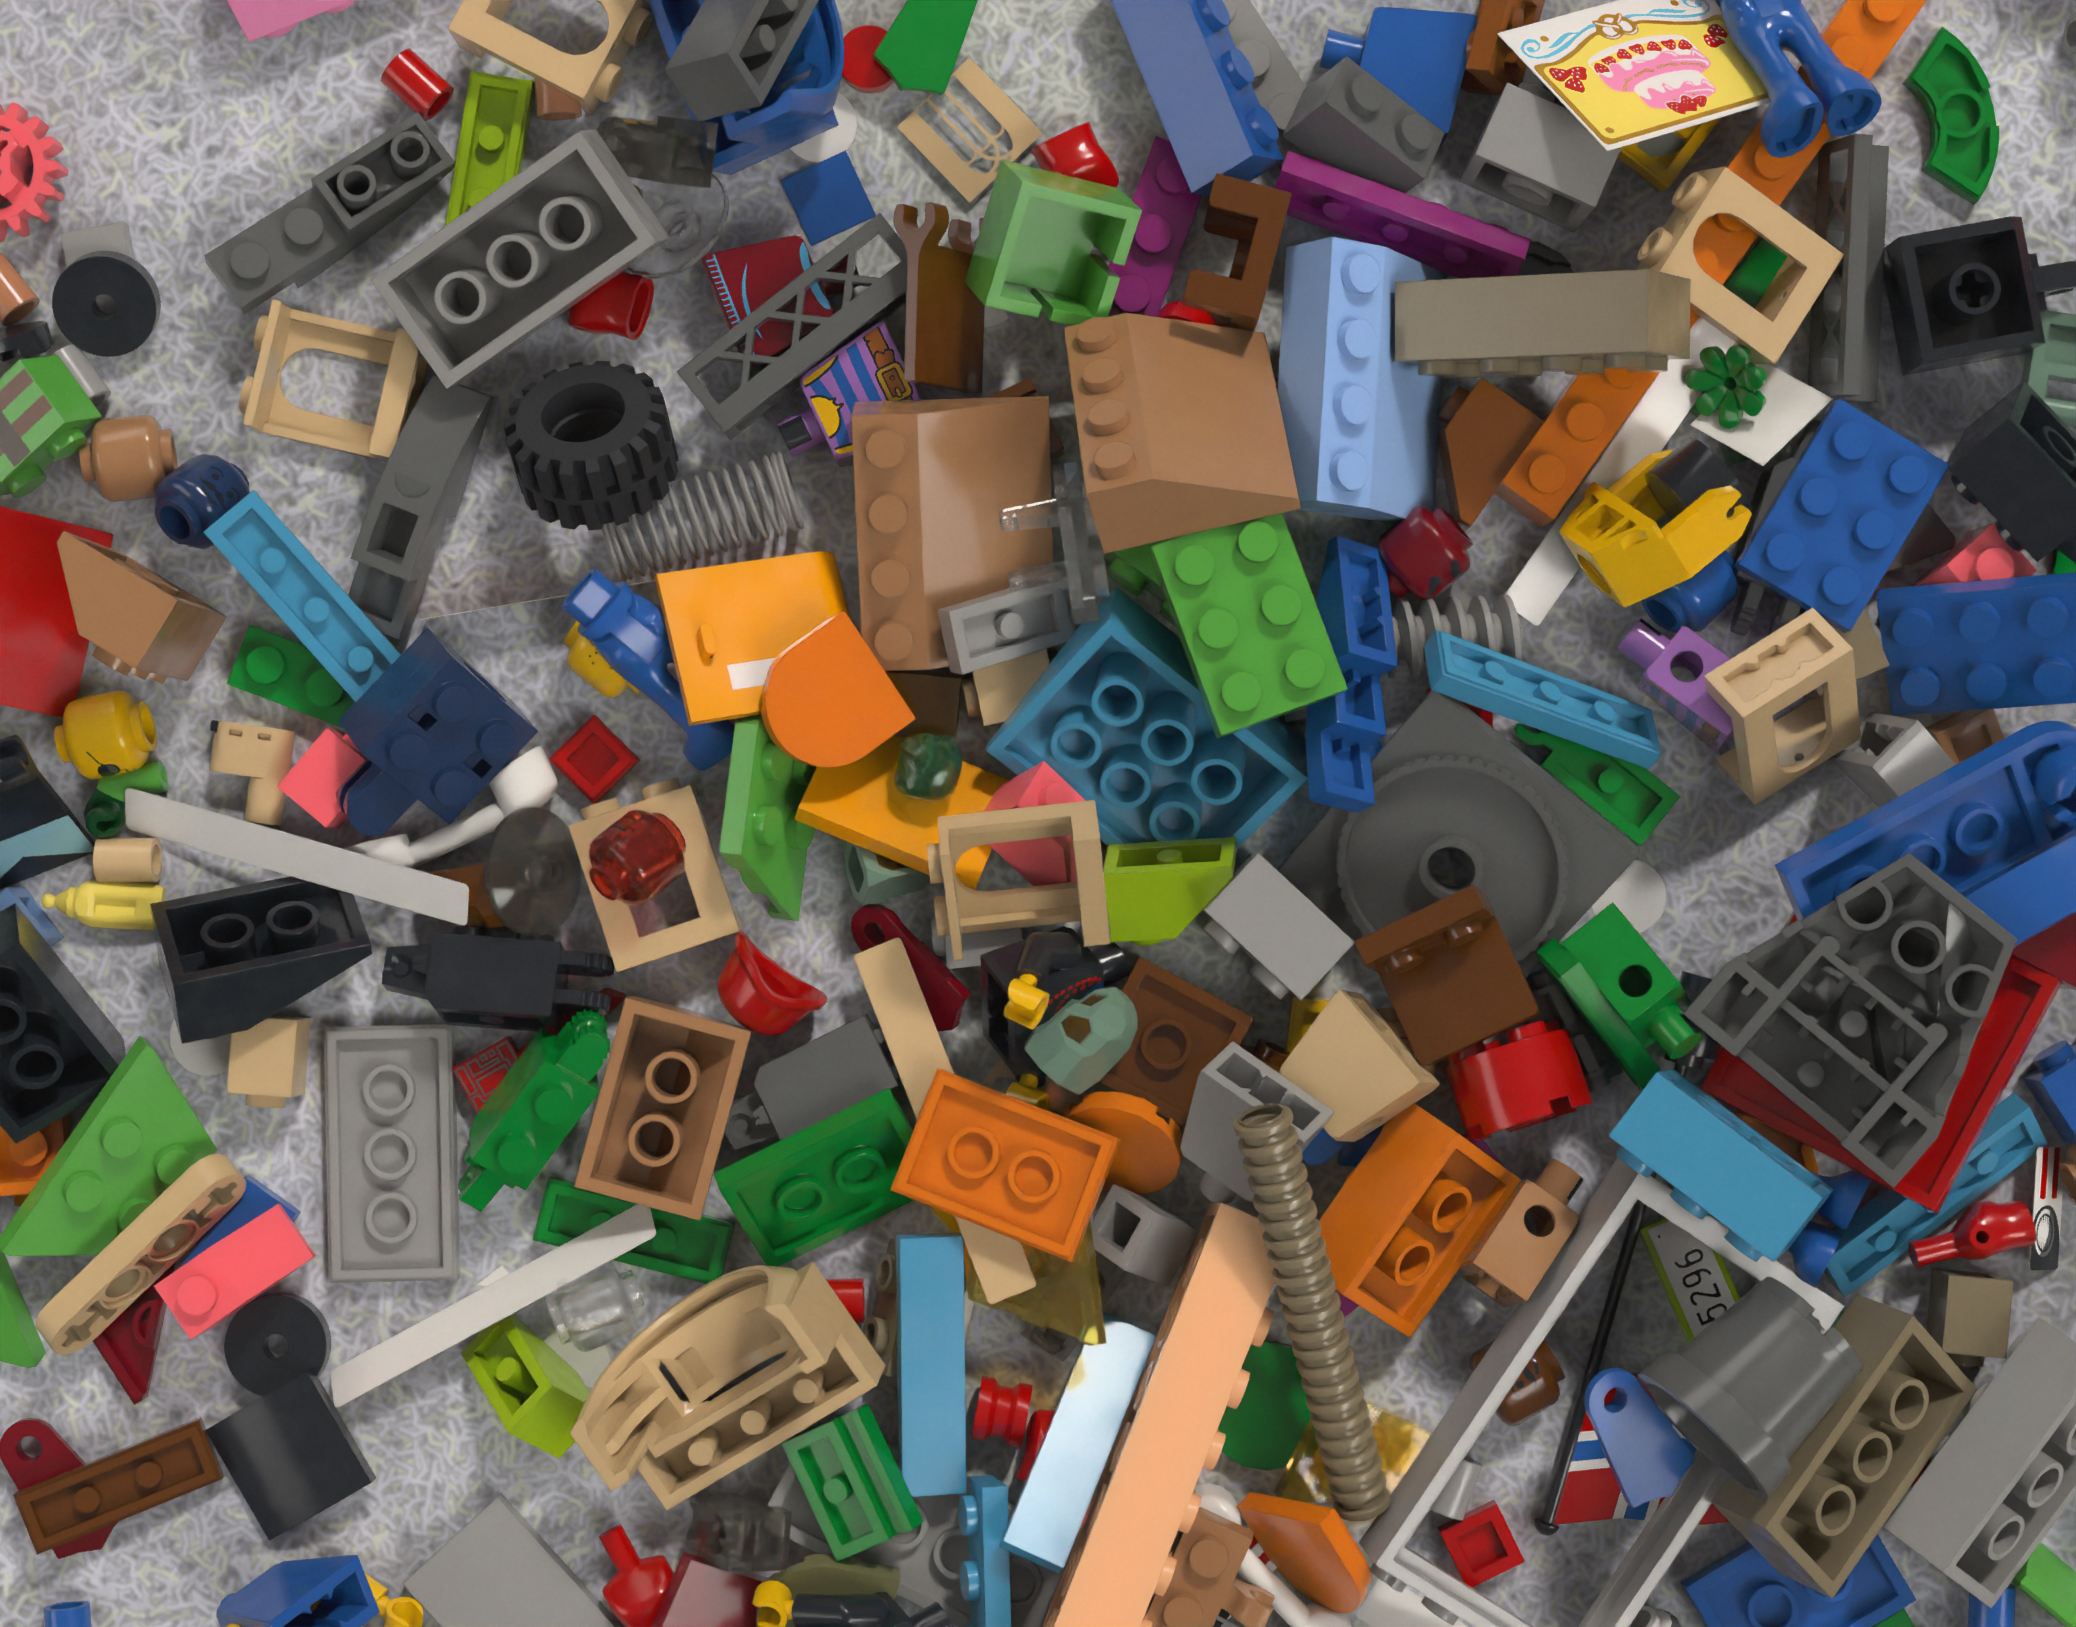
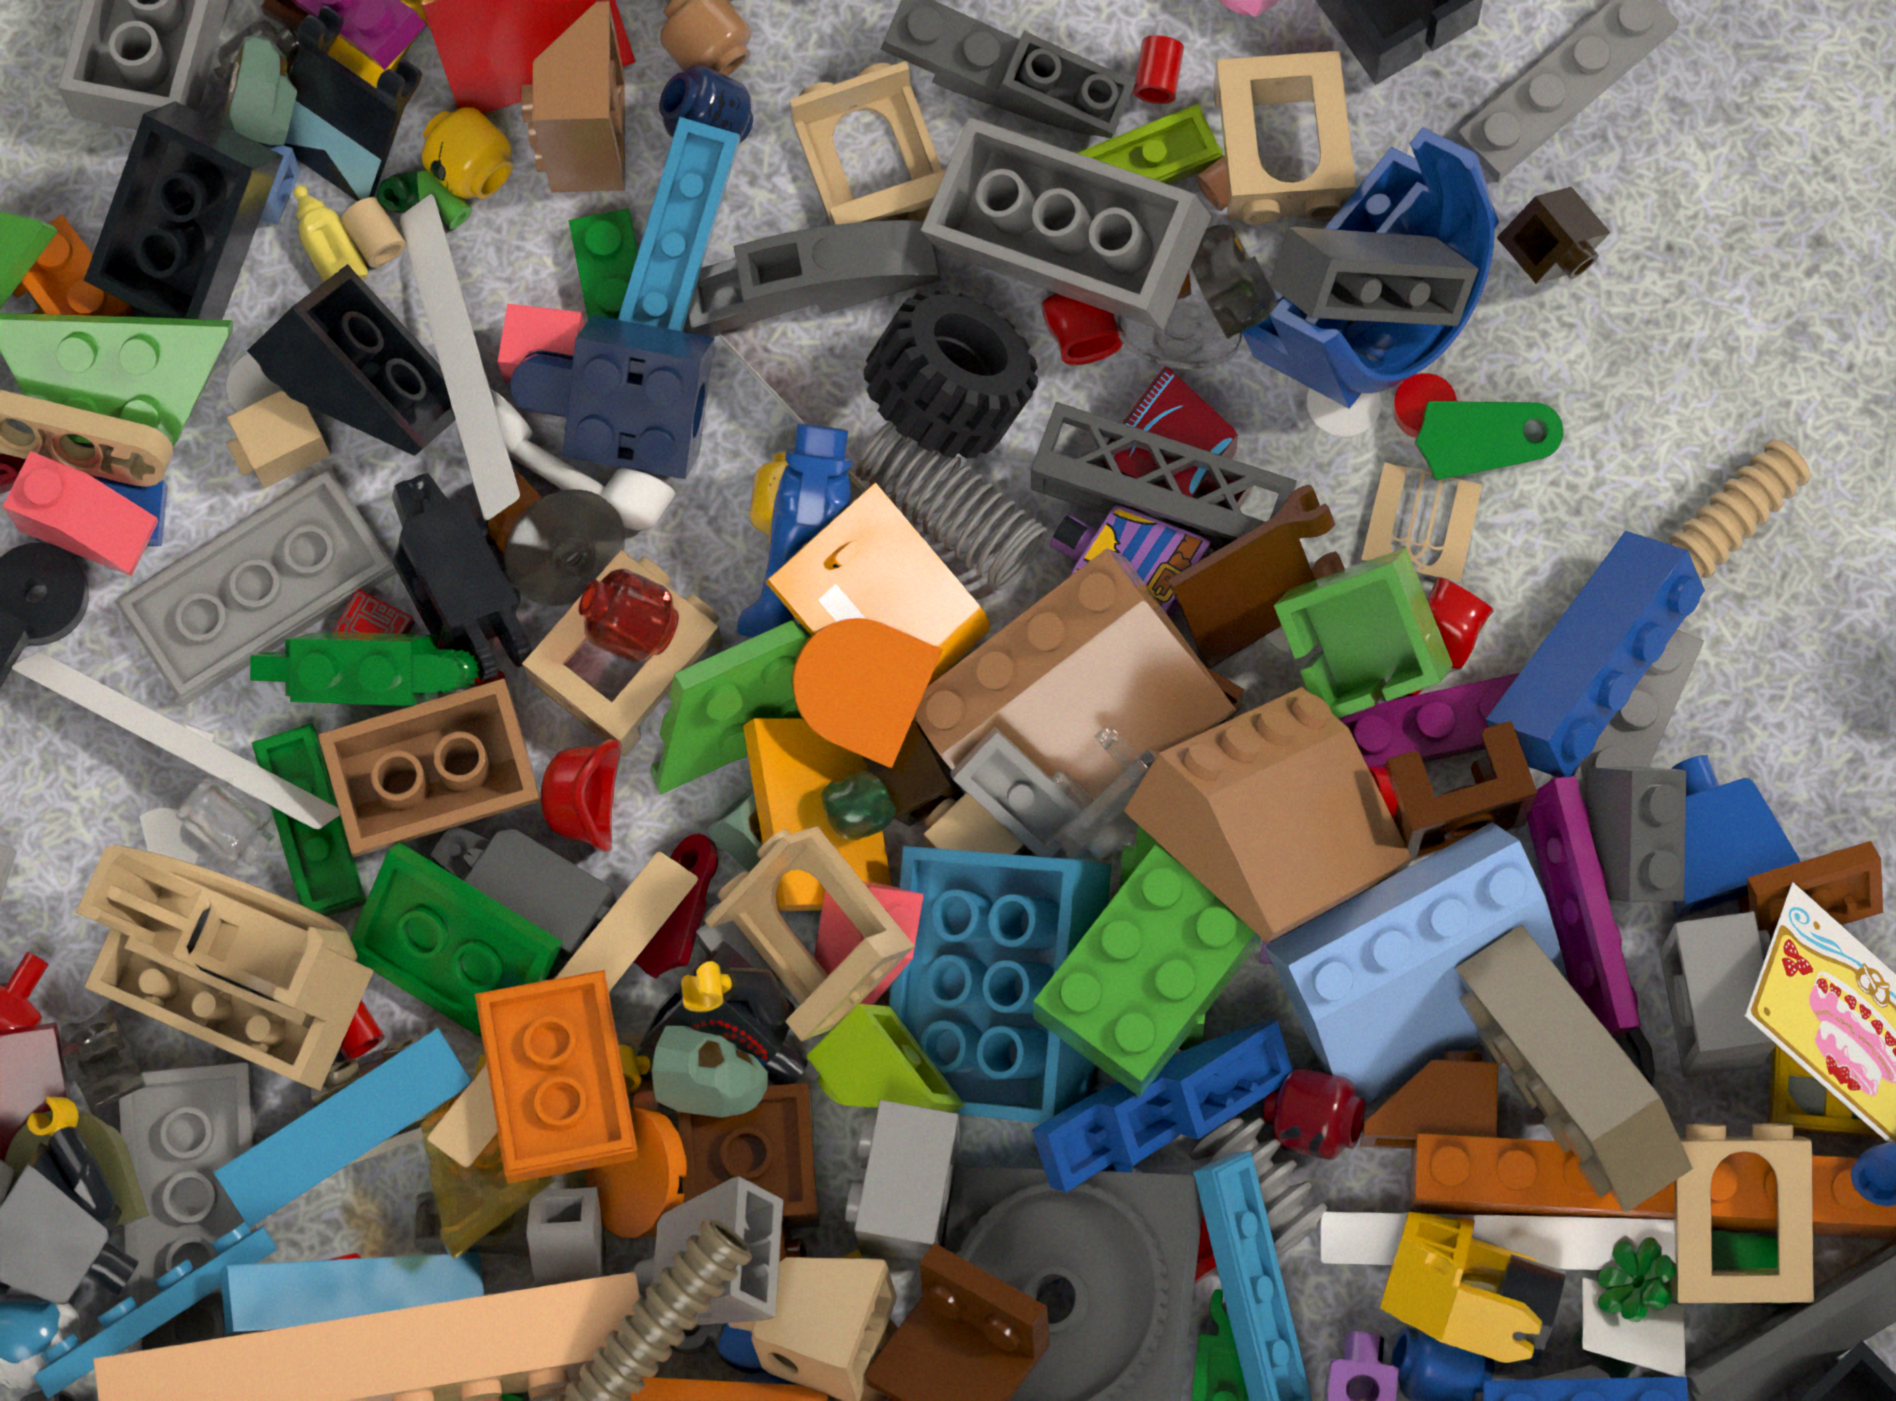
camera: 60 degrees right, 15 degrees down
(261, 755) = (524, 280): tan piece -> none
(527, 1384) = (125, 805): lime slope -> none
(594, 759) = (692, 546): red tile -> none
(828, 198) = (1288, 444): blue sticker -> none
(852, 1482) = (201, 1122): green plate -> none
(1001, 1412) = (338, 1222): red wheel -> none

